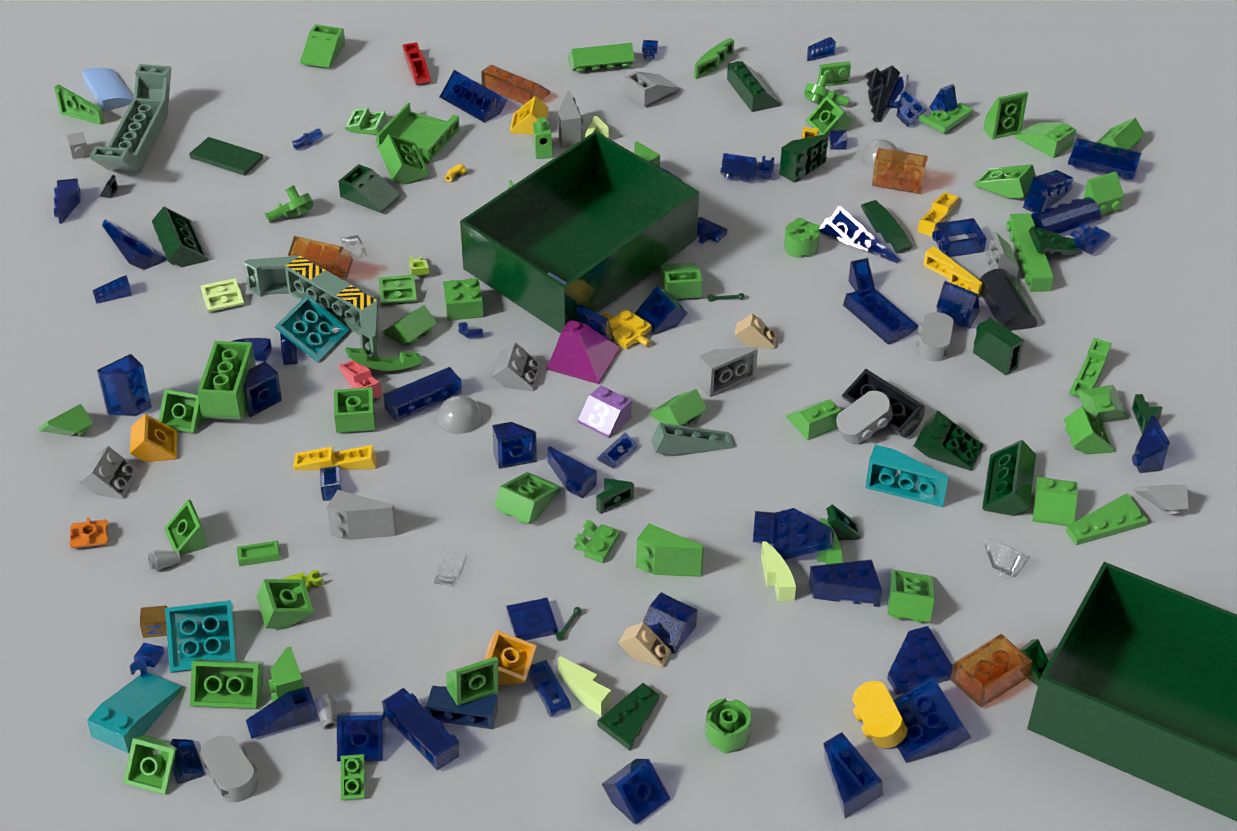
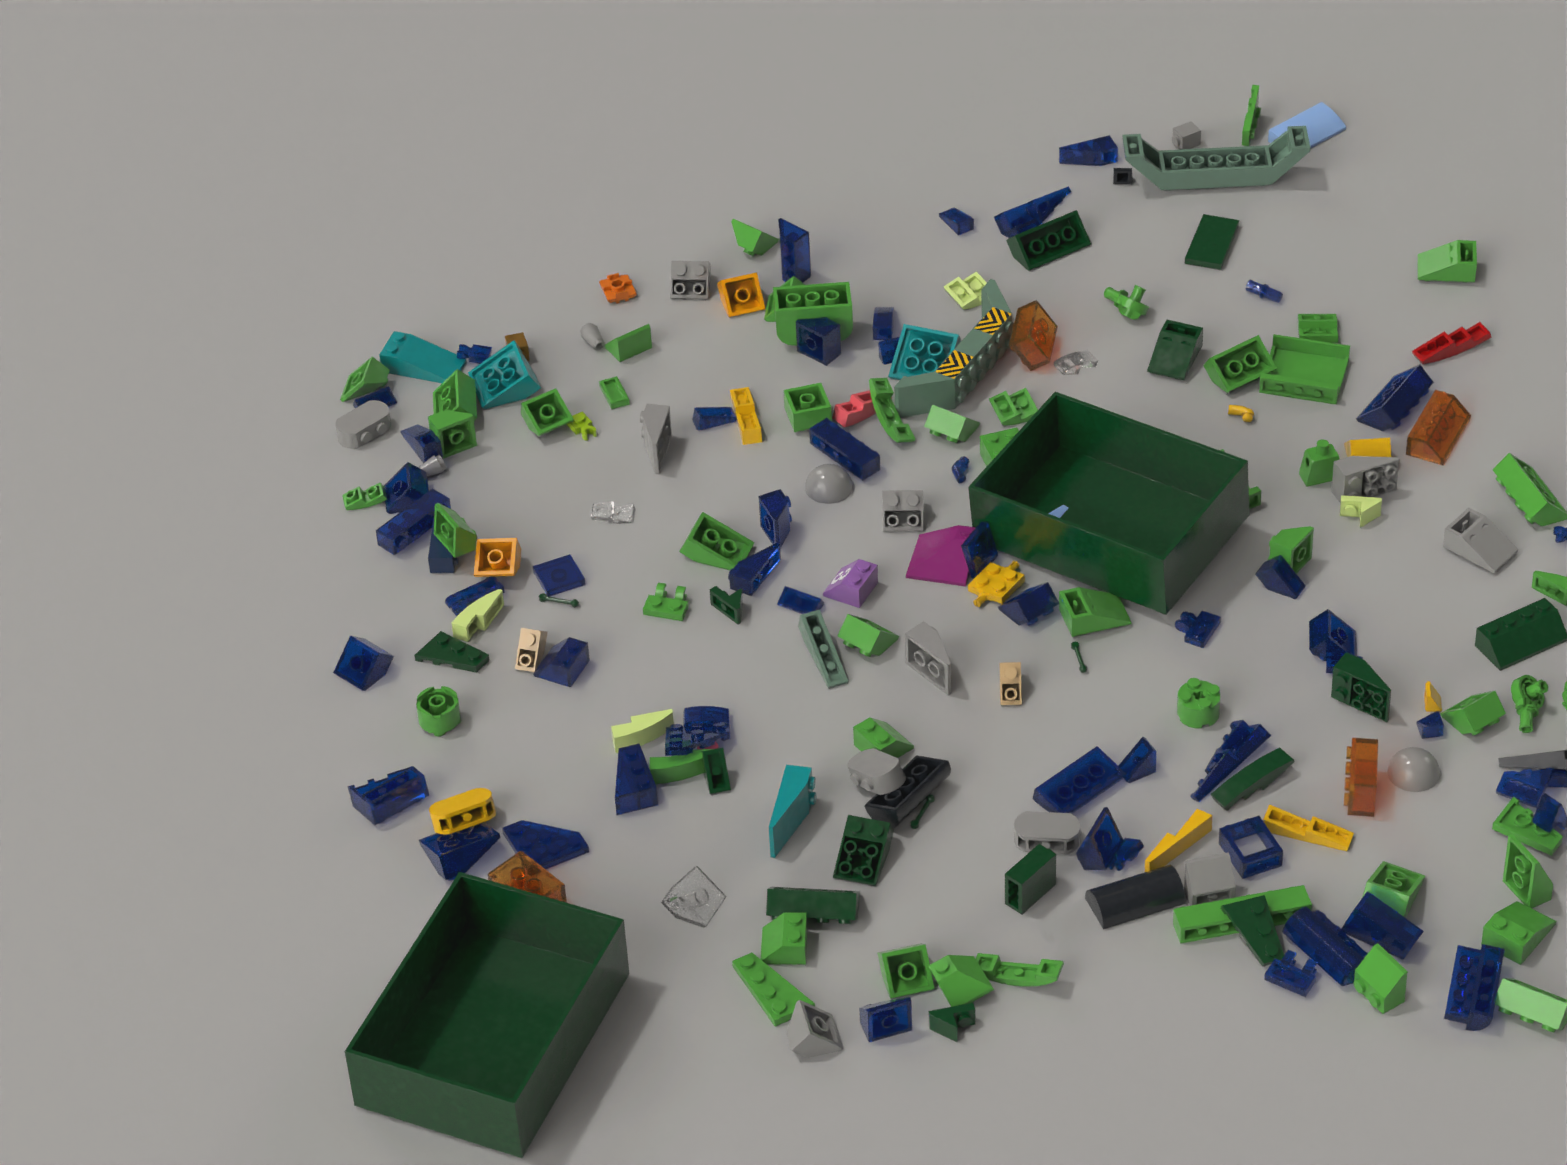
camera: 85 degrees right, 0 degrees up
(668, 553) = (647, 640): bright green slope -> none
(910, 596) = (627, 829): bright green slope -> none

